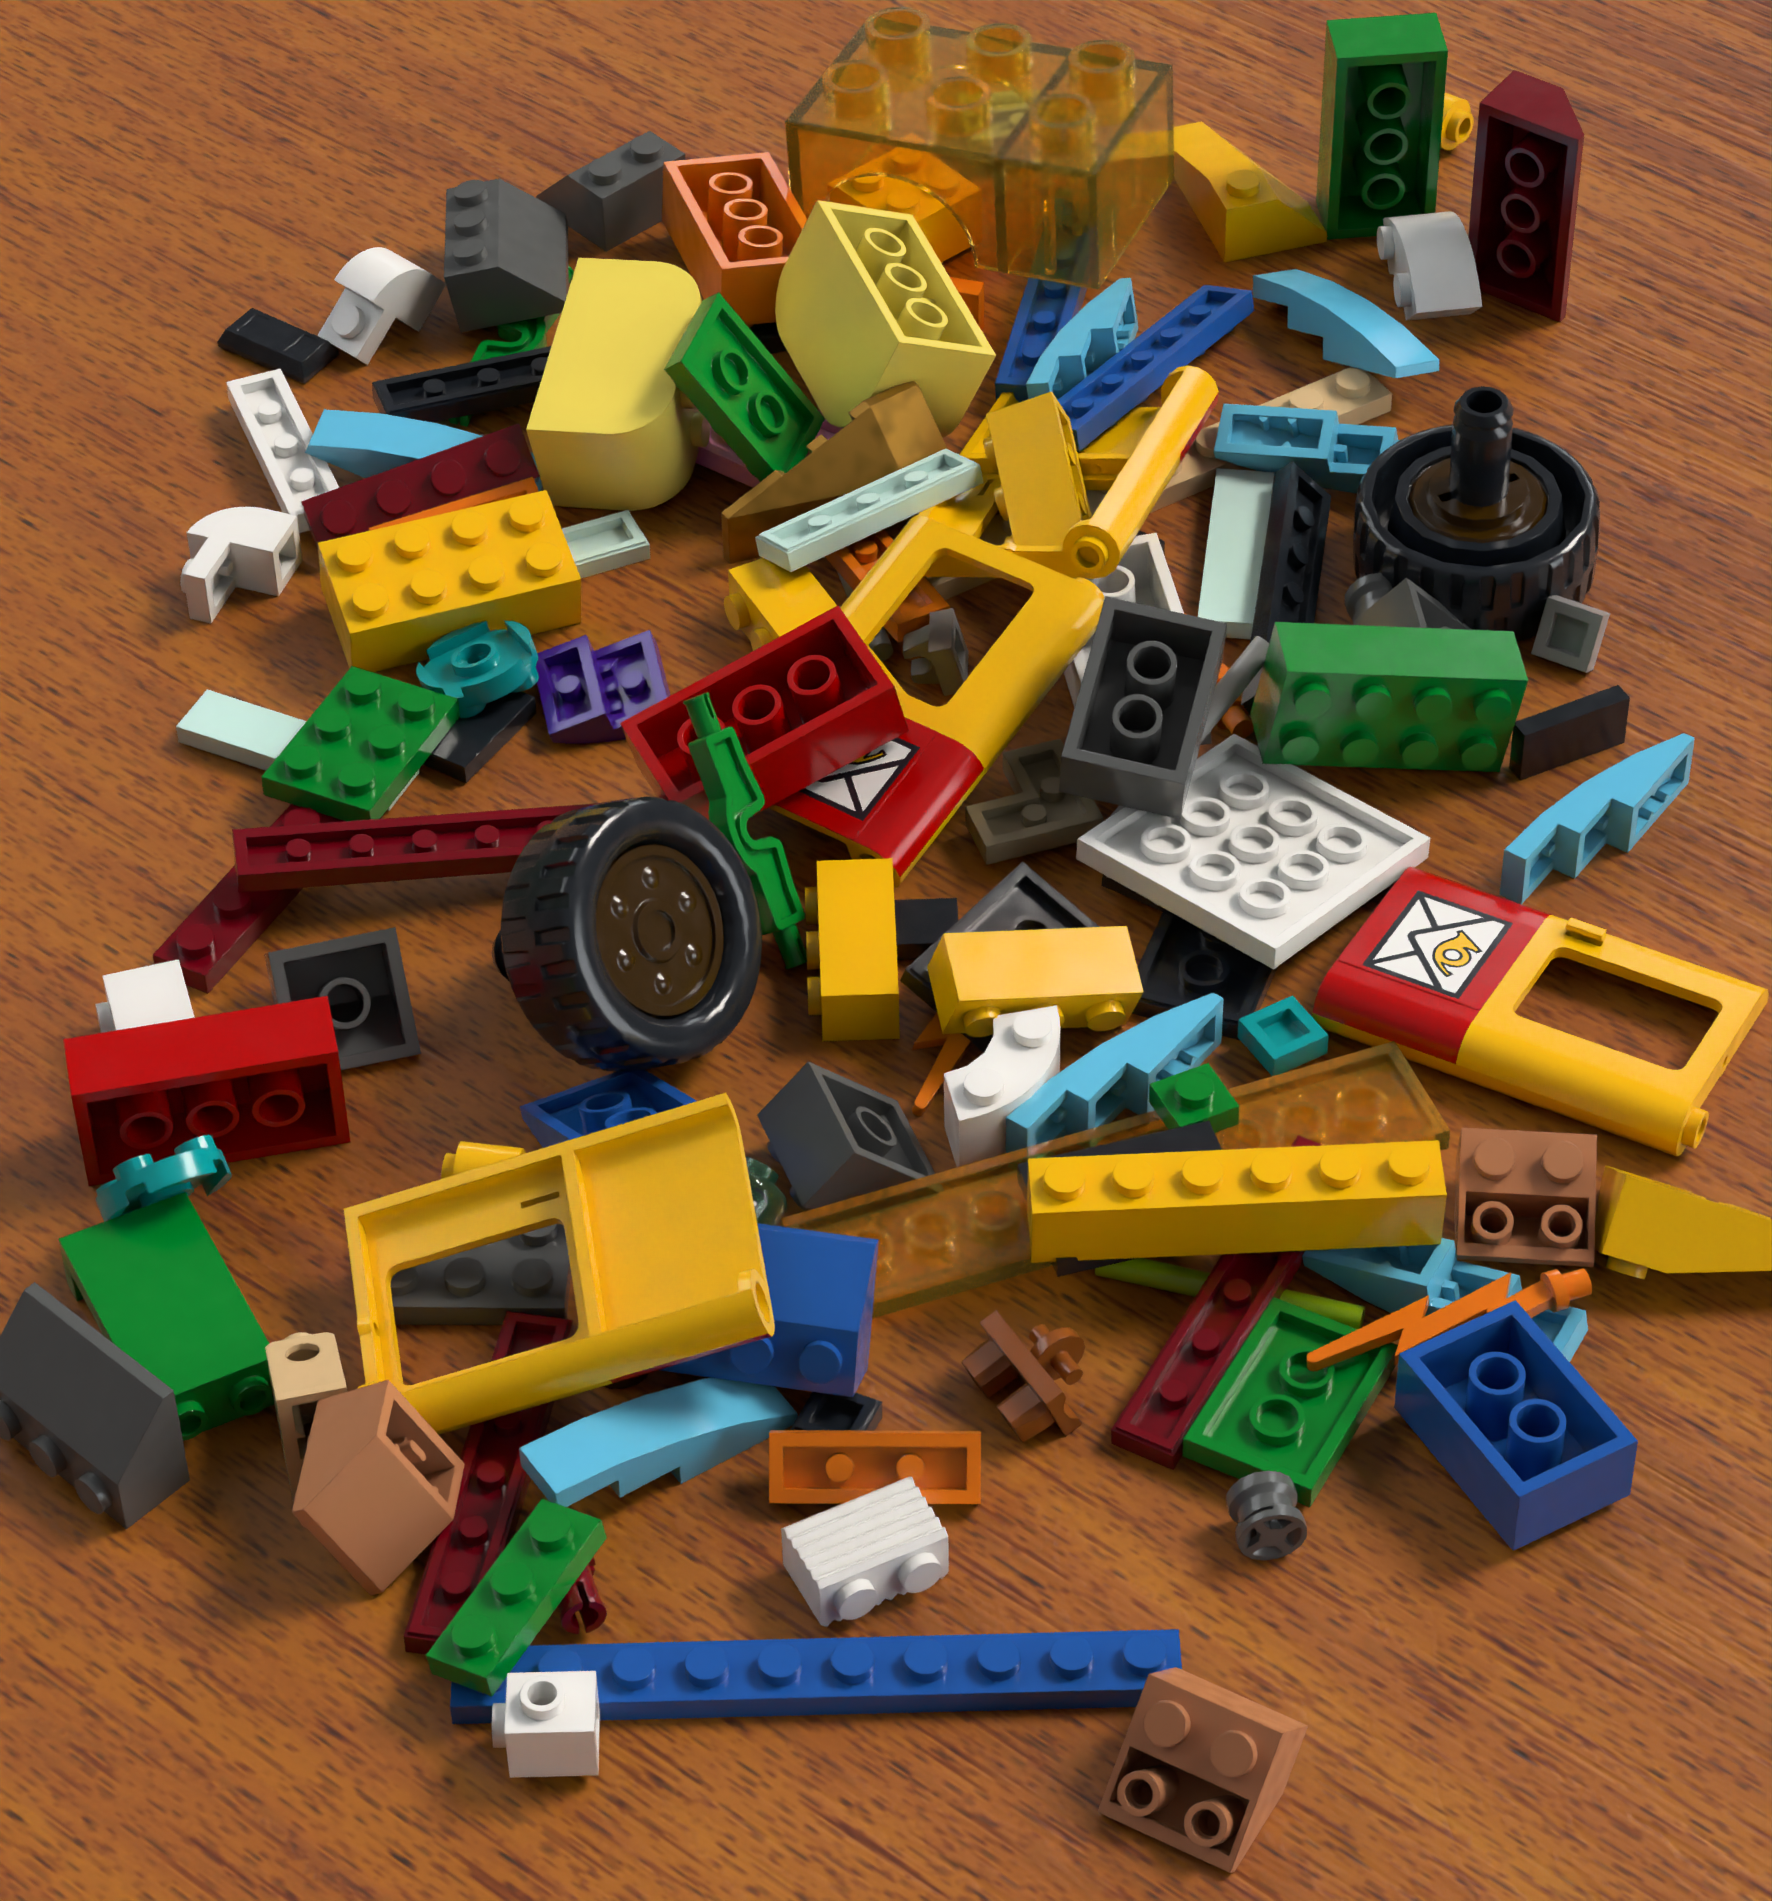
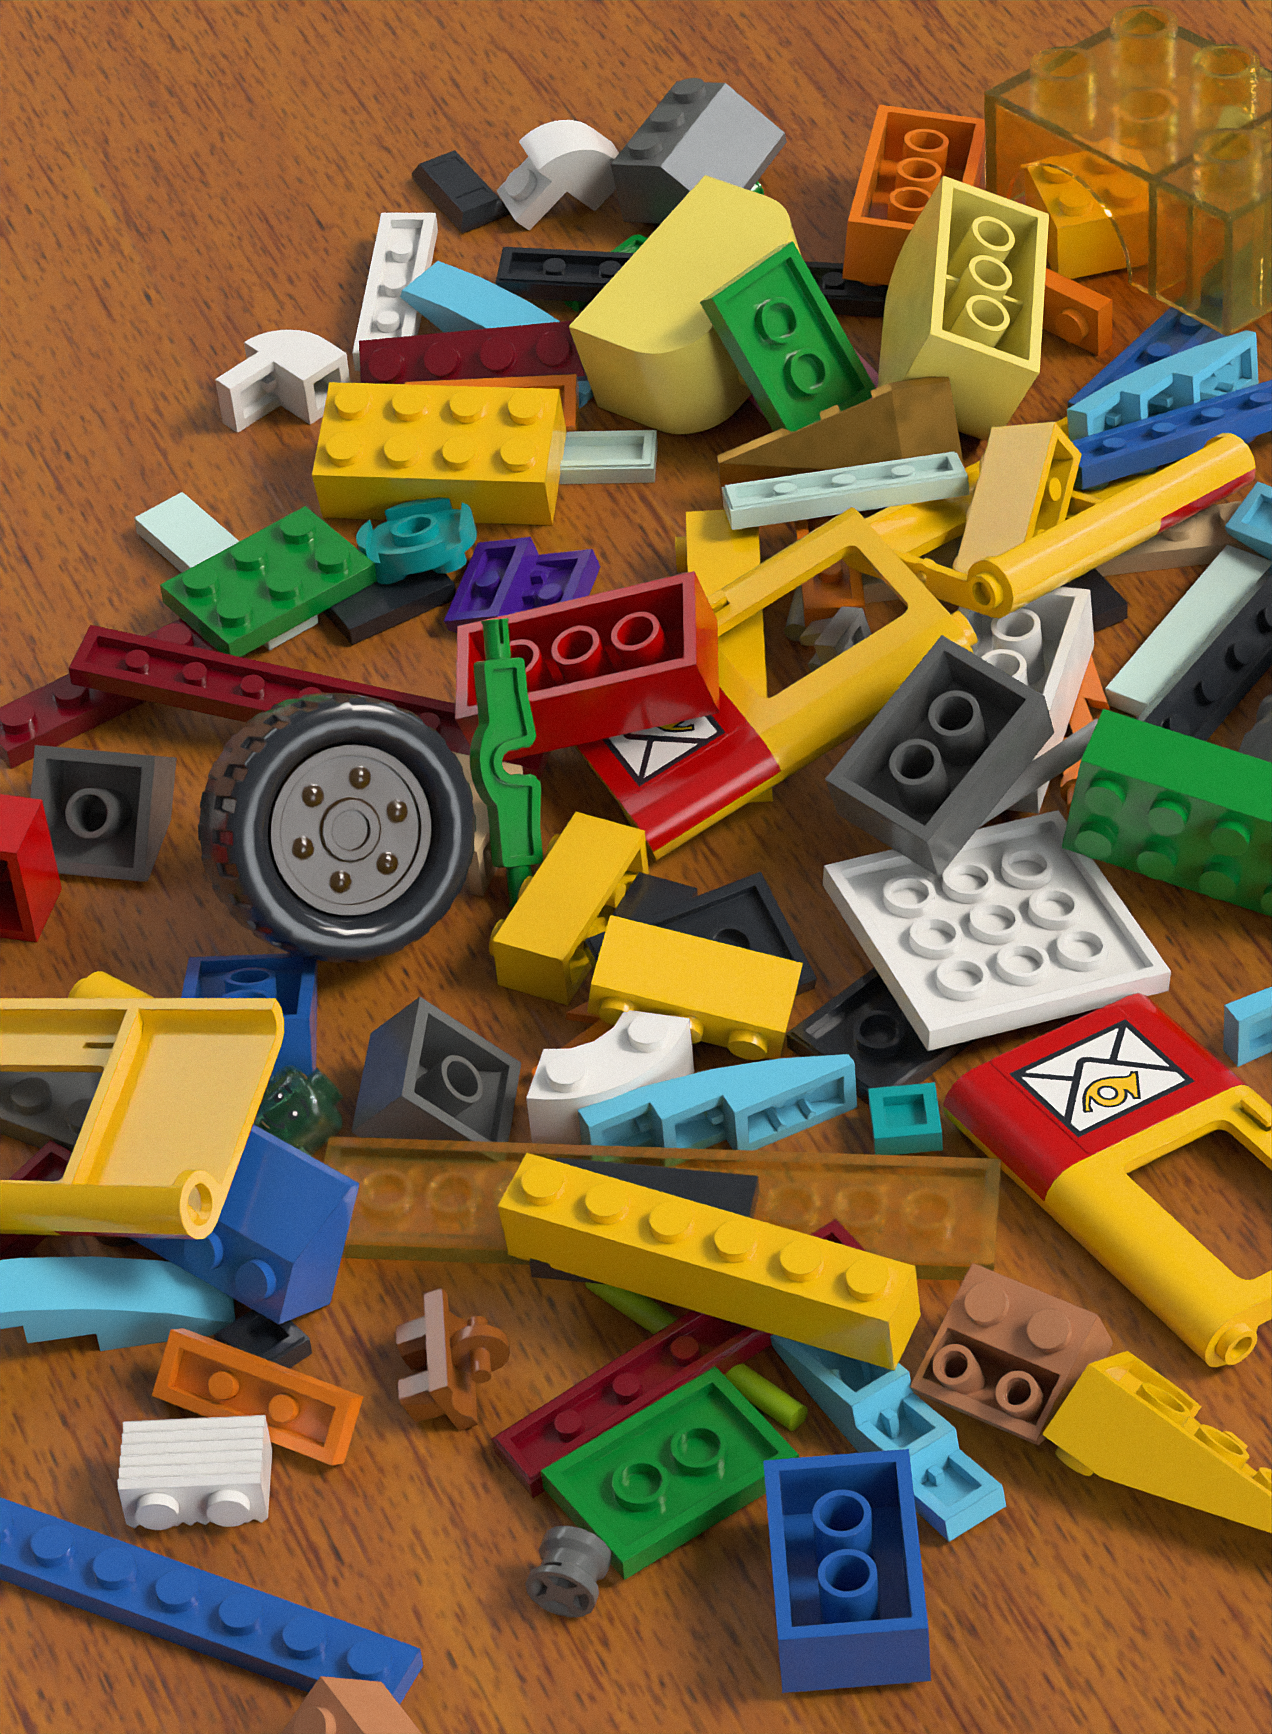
camera: 30 degrees right, 0 degrees up
(615, 193) = (836, 121): dark grey slope -> none
(1036, 814) = (807, 835): dark tan plate -> none
(1194, 1098) = (765, 1151): green plate -> none
(1413, 1327) = (826, 1437): orange piece -> none

